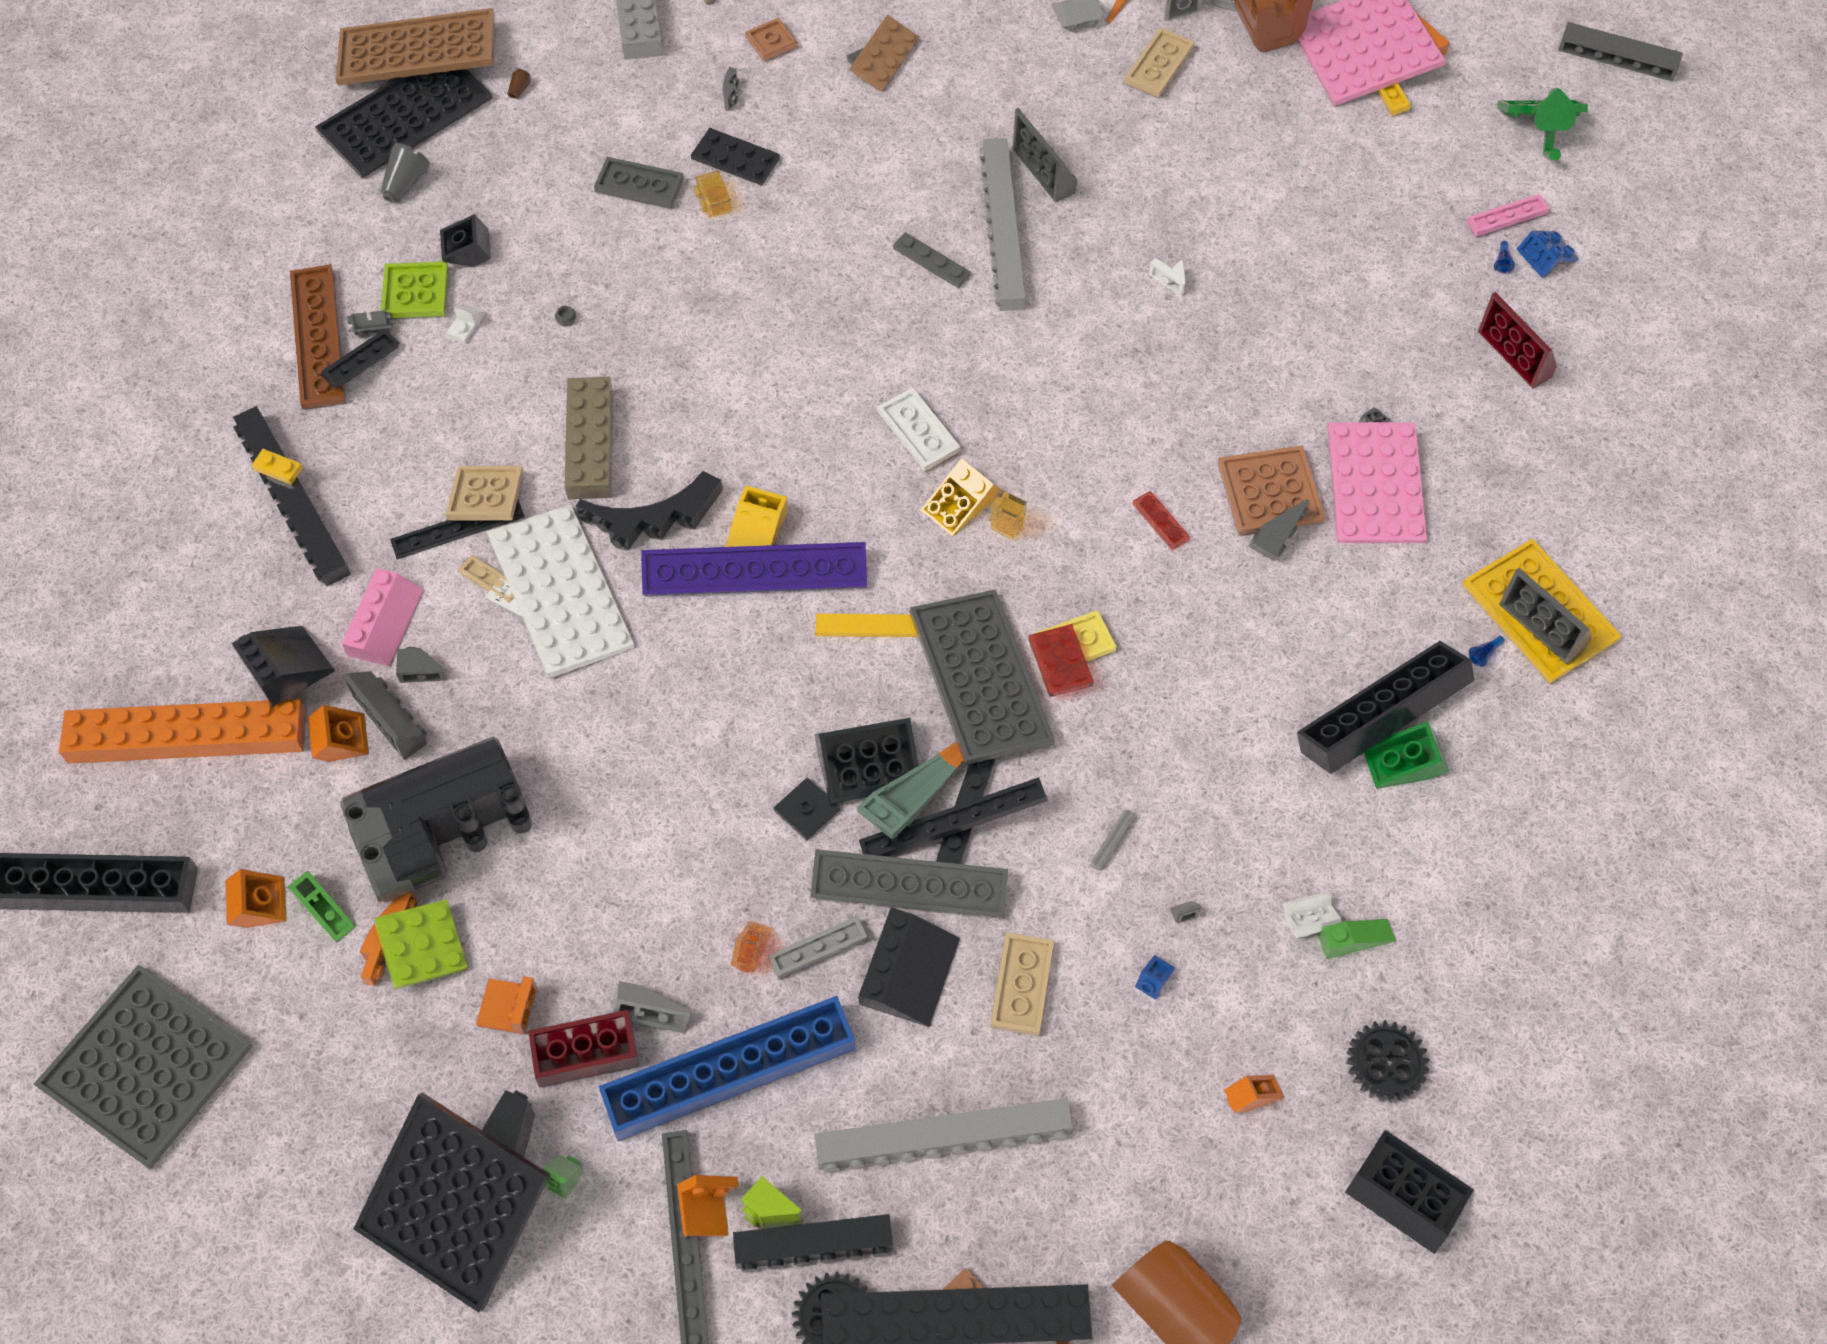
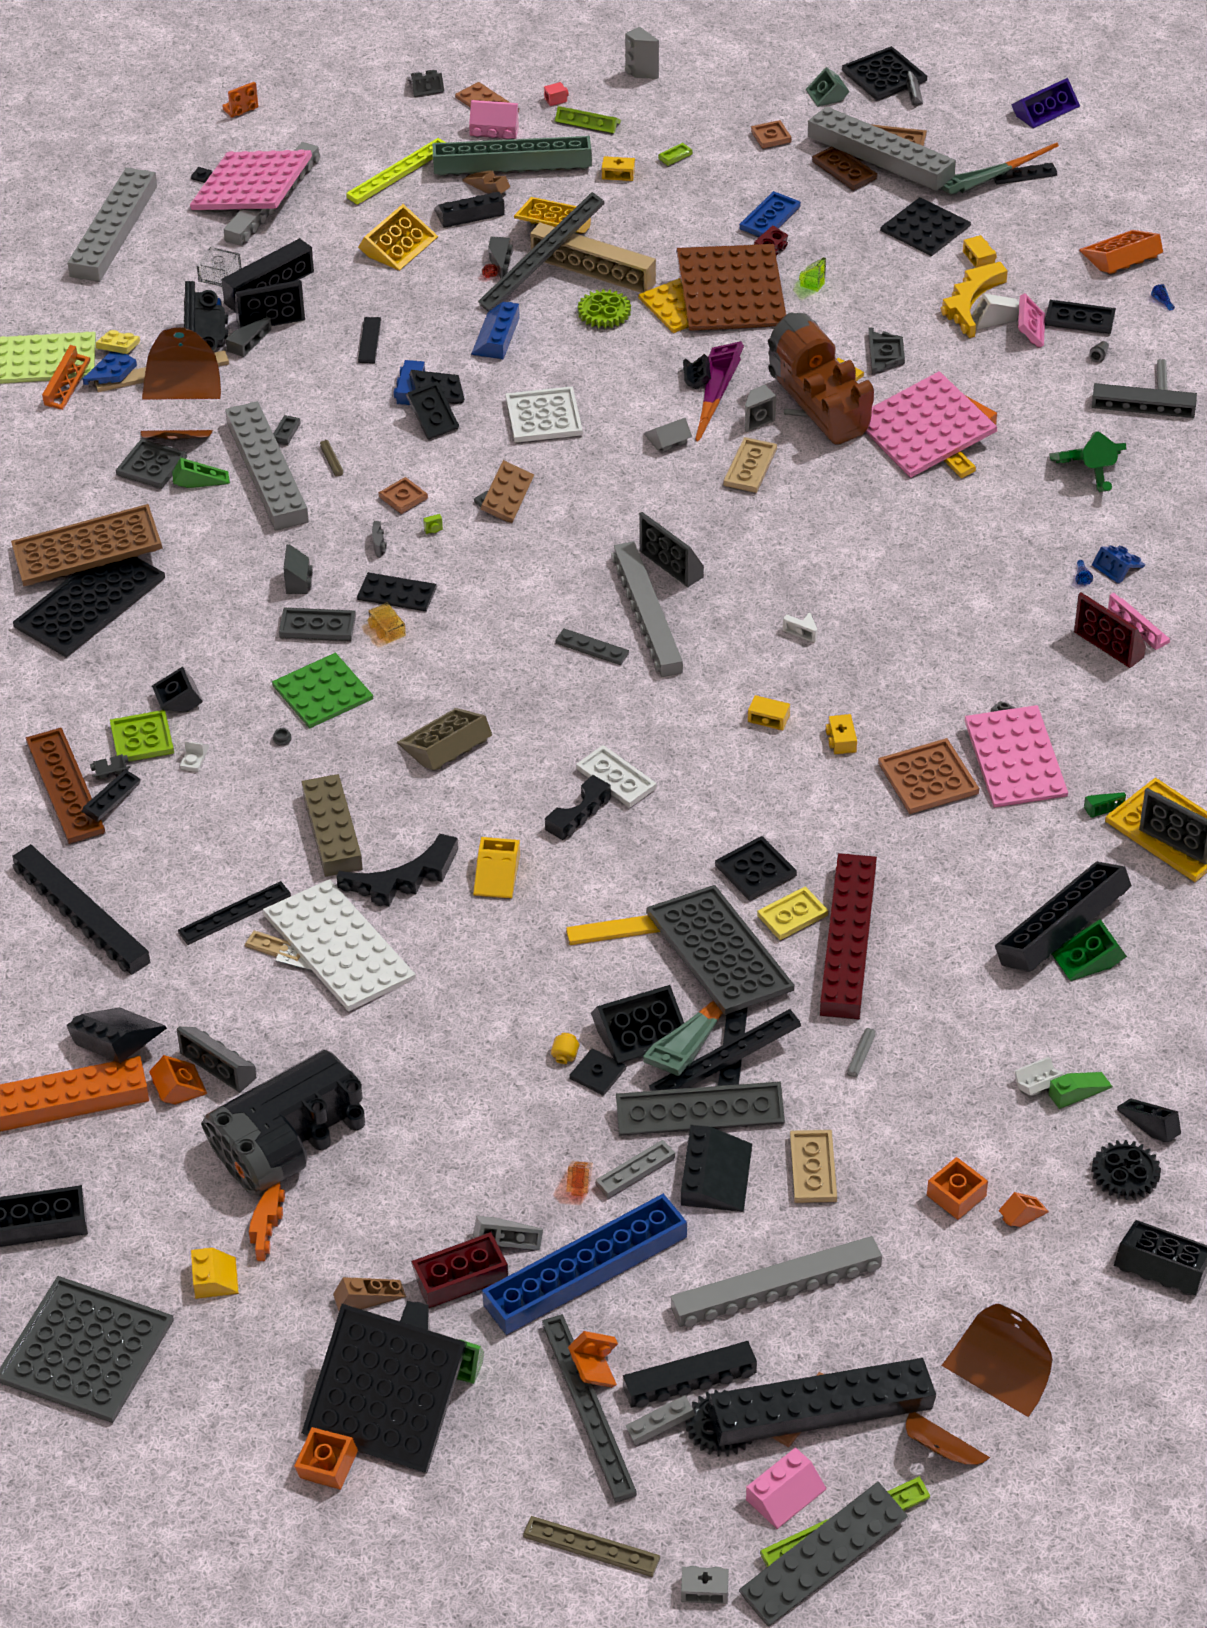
camera: 10 degrees left, 15 degrees down
(254, 899) = (142, 1212): orange slope -> none
(277, 466) = (65, 886): yellow plate -> none
(310, 995) = (213, 1273): none -> yellow slope
(320, 906) = (201, 1207): bright green slope -> none
(368, 1274) = (326, 1458): none -> orange brick
(382, 618) = (190, 988): bright pink slope -> none
(402, 171) = (104, 644): dark grey cone -> none
(417, 666) = (234, 1019): dark grey slope -> none
(420, 944) = (298, 1219): lime plate -> none
(475, 1055) = (367, 1292): none -> medium nougat slope
(484, 493) = (252, 880): tan plate -> none
(507, 1005) = (384, 1253): orange bracket -> none
(519, 81) = (186, 561): reddish brown cone -> none
(624, 265) = (322, 690): none -> bright green plate
(630, 115) = (297, 571): none -> dark grey slope
(742, 348) = (446, 738): none -> dark tan slope
(754, 568) = (503, 901): dark purple plate -> none
(763, 1299) = (660, 1420): none -> light grey plate
(769, 1207) = (648, 1349): lime slope -> none
(776, 773) = (565, 1048): none -> yellow head
(794, 80) = (433, 524): none -> lime plate
(846, 477) = (563, 821): none -> black arch
(960, 498) = (666, 820): yellow slope -> none
(1008, 515) = (711, 826): clear yellow brick -> none
(1047, 575) = (755, 868): none -> black plate
(1060, 660) = (784, 927): clear red plate -> none
(1107, 378) = (768, 712): none -> yellow brick
(1131, 686) = (848, 936): none -> dark red brick
(1154, 977) = (920, 1143): blue bracket -> none
(1161, 520) = (841, 813): clear red plate -> none
(1182, 1050) = (957, 1188): none -> orange brick
(1184, 419) = (842, 734): none -> yellow brick
(1185, 911) = (935, 1093): flat silver slope -> none
(1272, 535) = (939, 804): dark grey slope -> none
(1432, 997) = (1152, 1119): none -> black slope
(1464, 562) = (1103, 803): none -> green slope
(1482, 653) = (1135, 866): clear blue cone -> none
(1507, 215) = (1078, 539): bright pink plate -> none
(1553, 332) = (1148, 631): none -> bright pink fence
(1647, 21) = (1162, 374): none -> light grey axle

